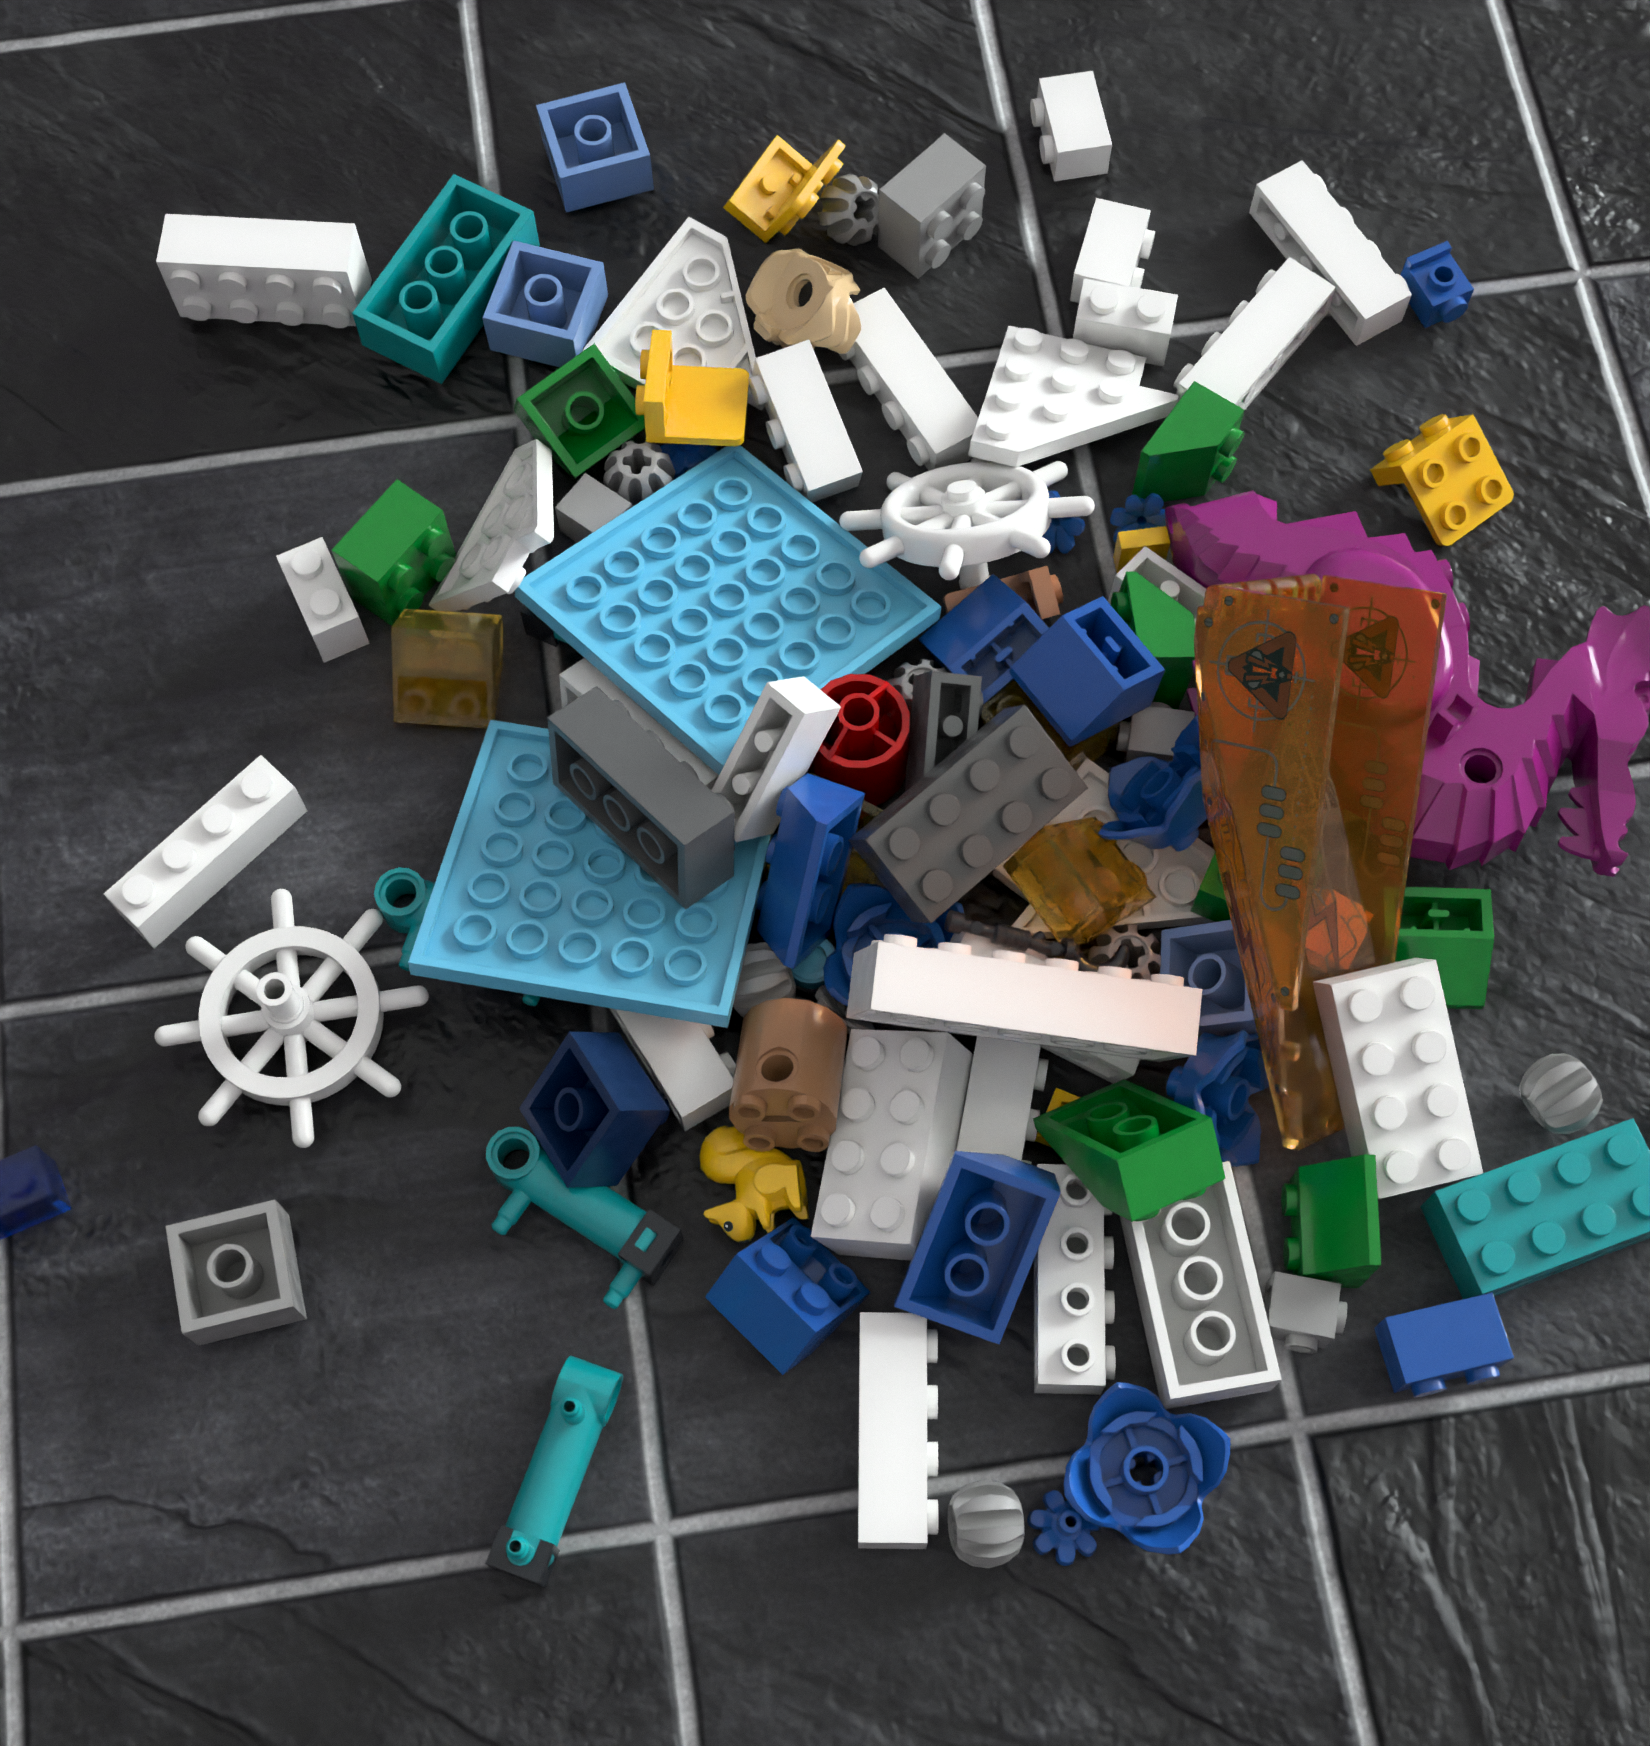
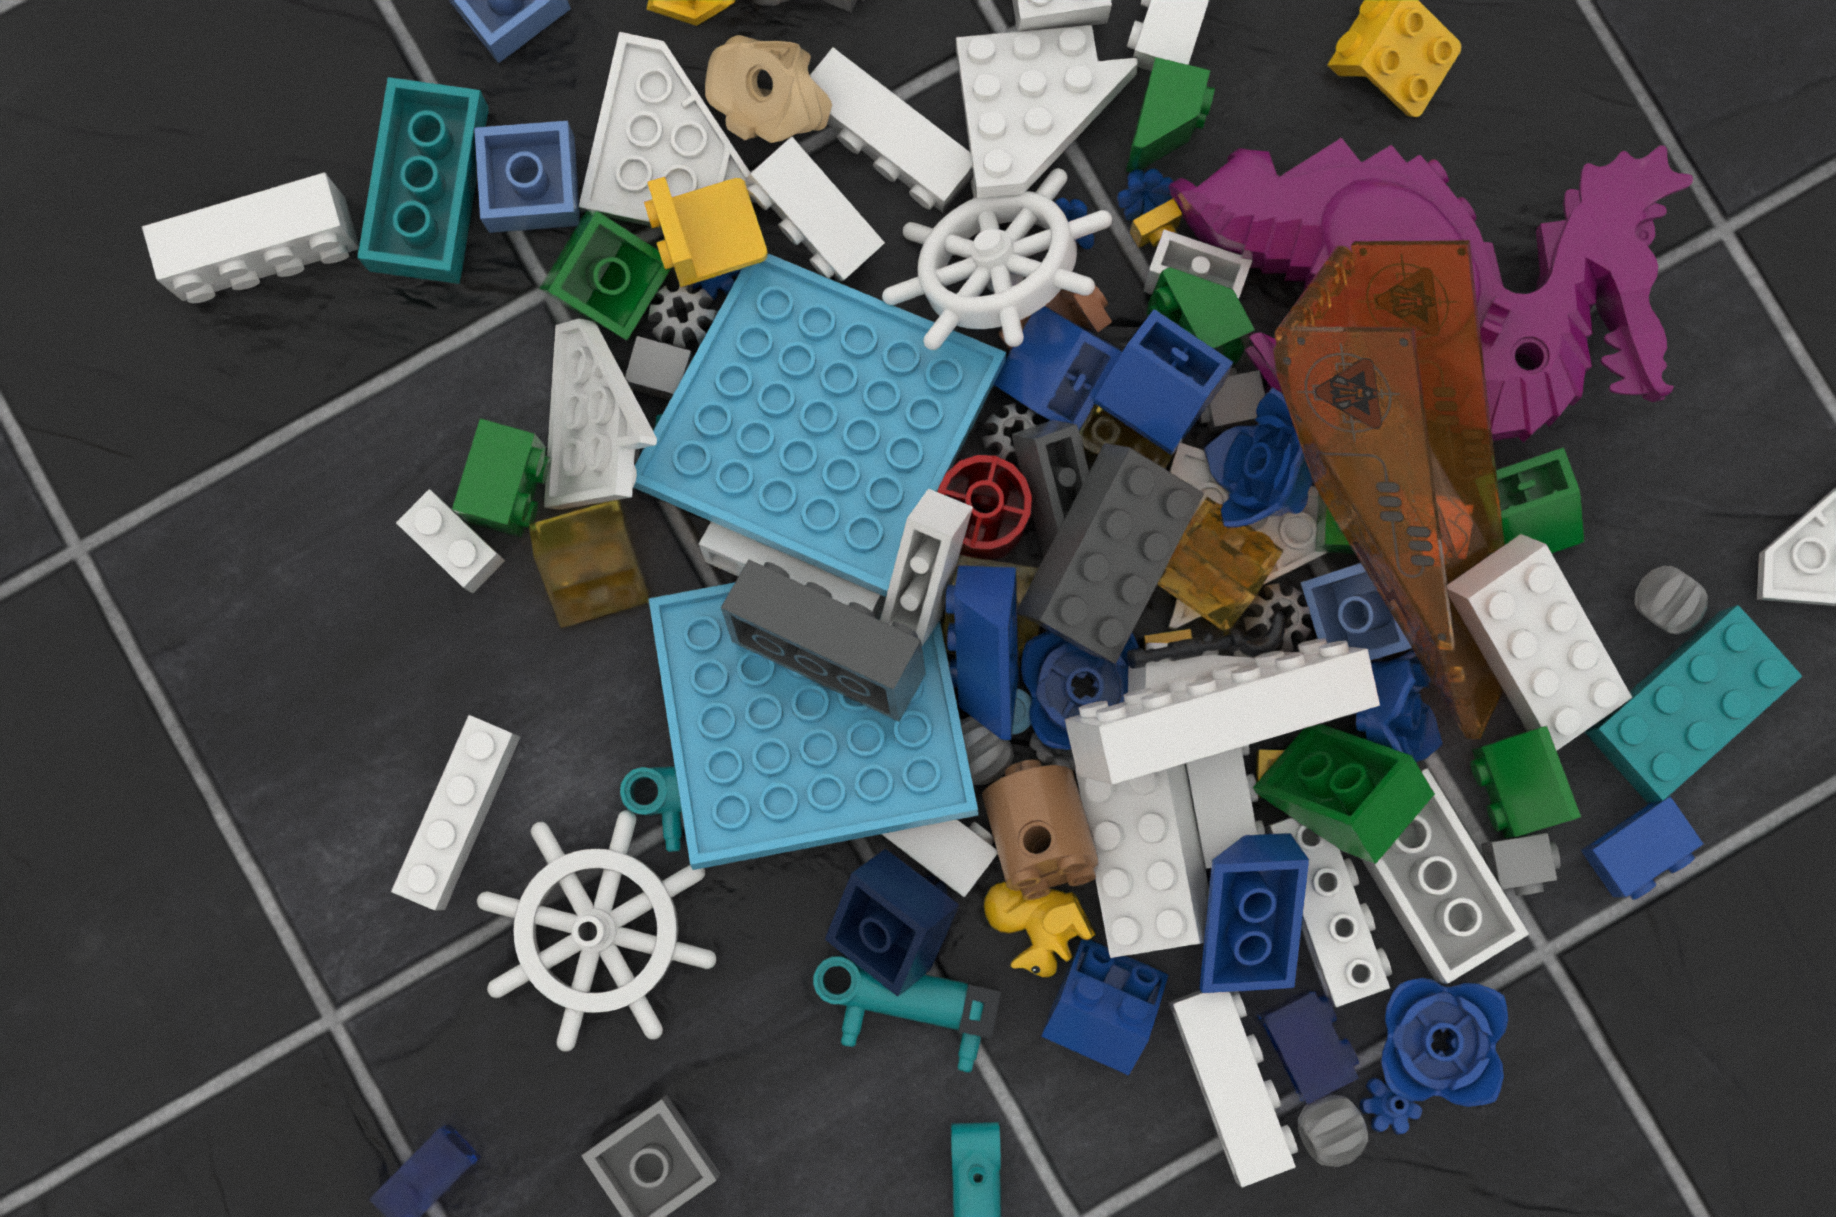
camera: 25 degrees left, 15 degrees up
(994, 1420) = (1309, 1045): none -> clear blue brick

